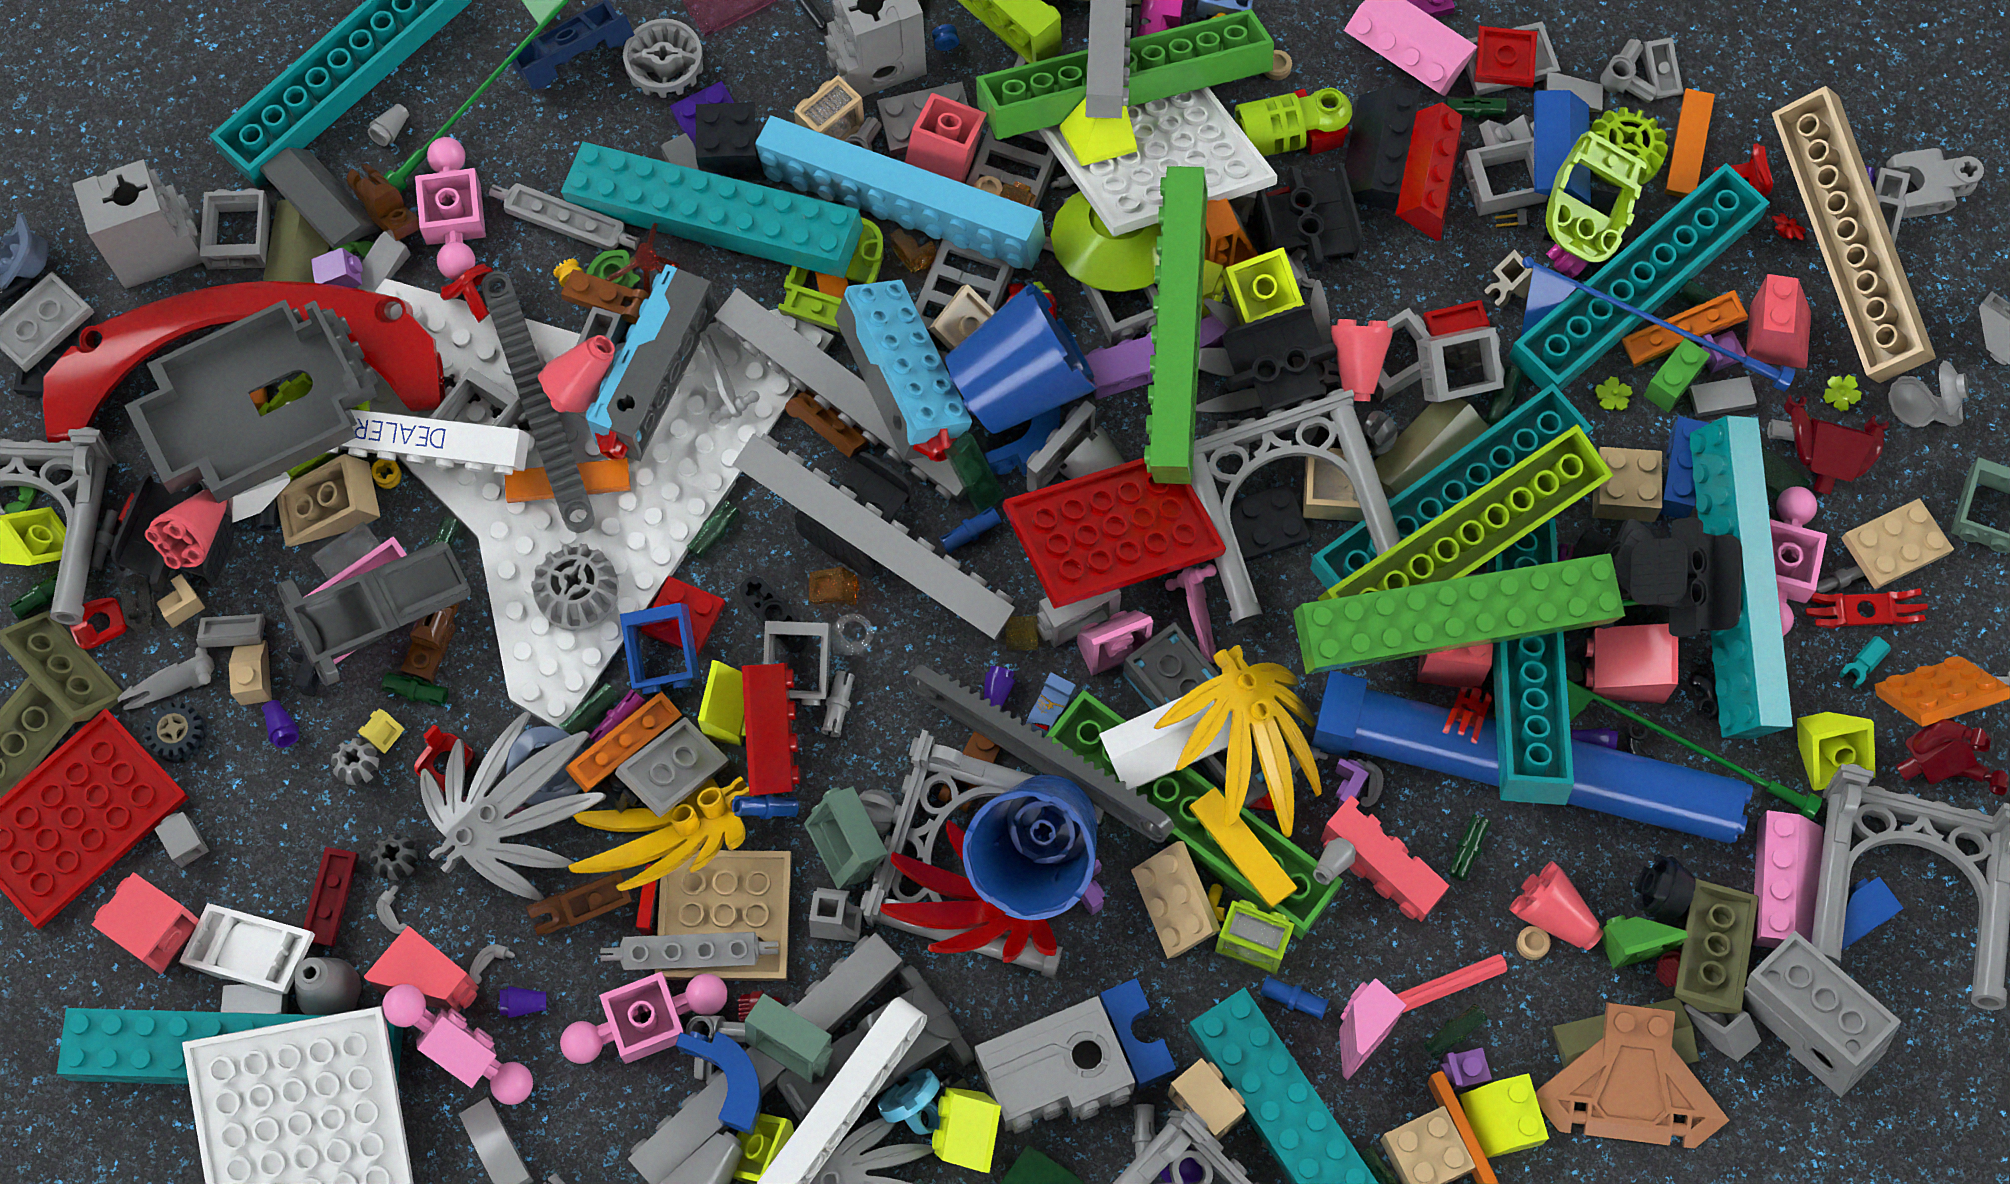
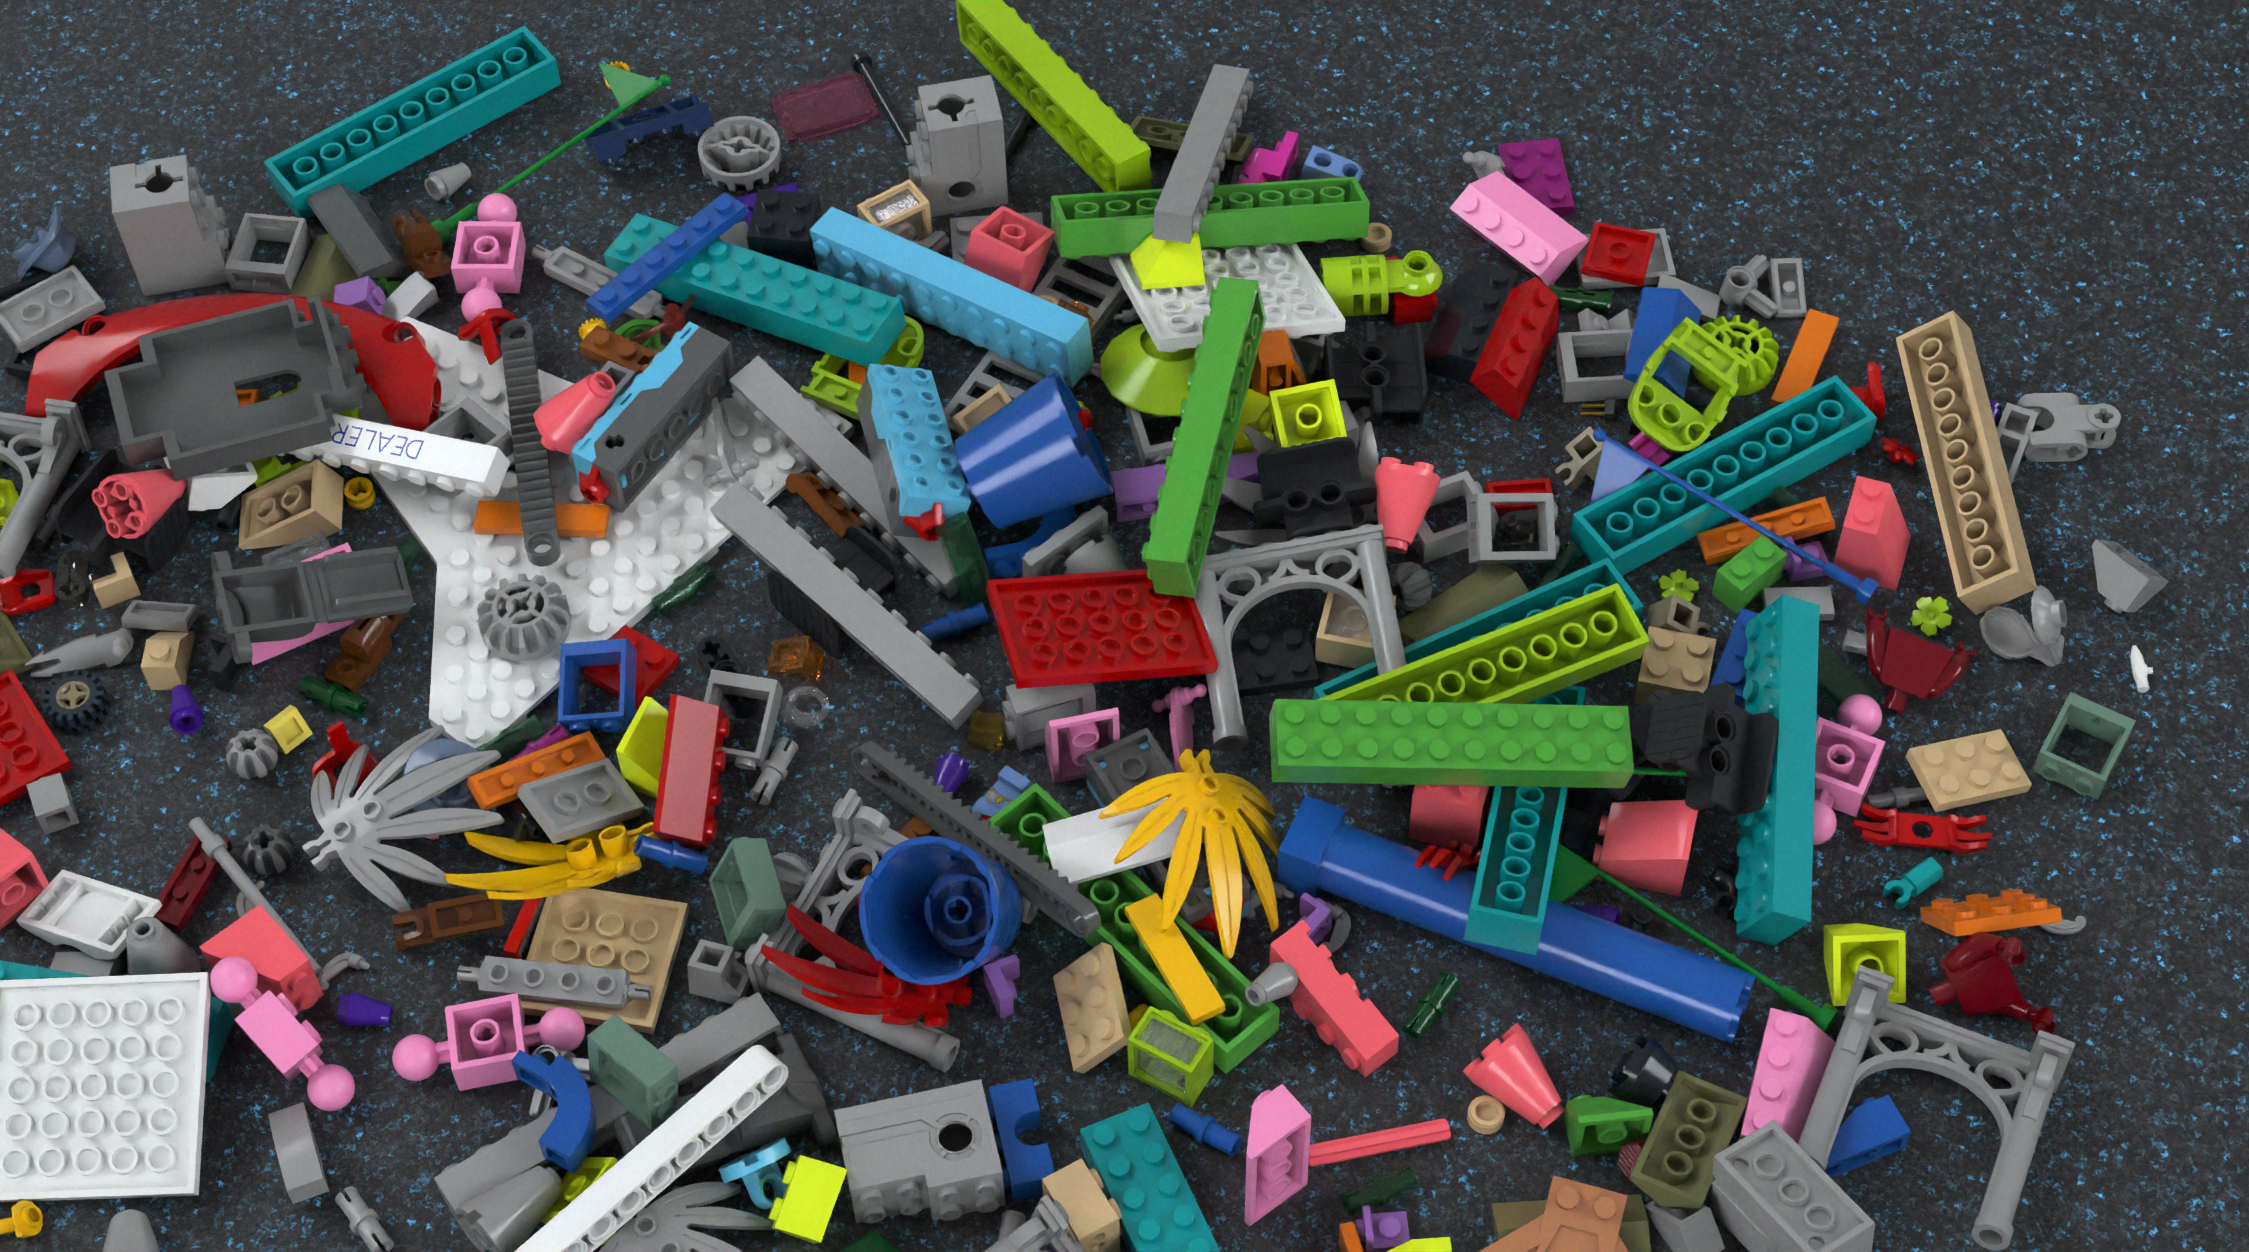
camera: 10 degrees right, 15 degrees down
(348, 865) = (217, 849): none -> light grey bar
(625, 191) = (666, 257): none -> blue plate
(910, 253) = (951, 359): clear orange bracket -> none
(945, 37) = (1034, 170): blue bush -> none
(1619, 432) = (1676, 615): none -> dark tan brick

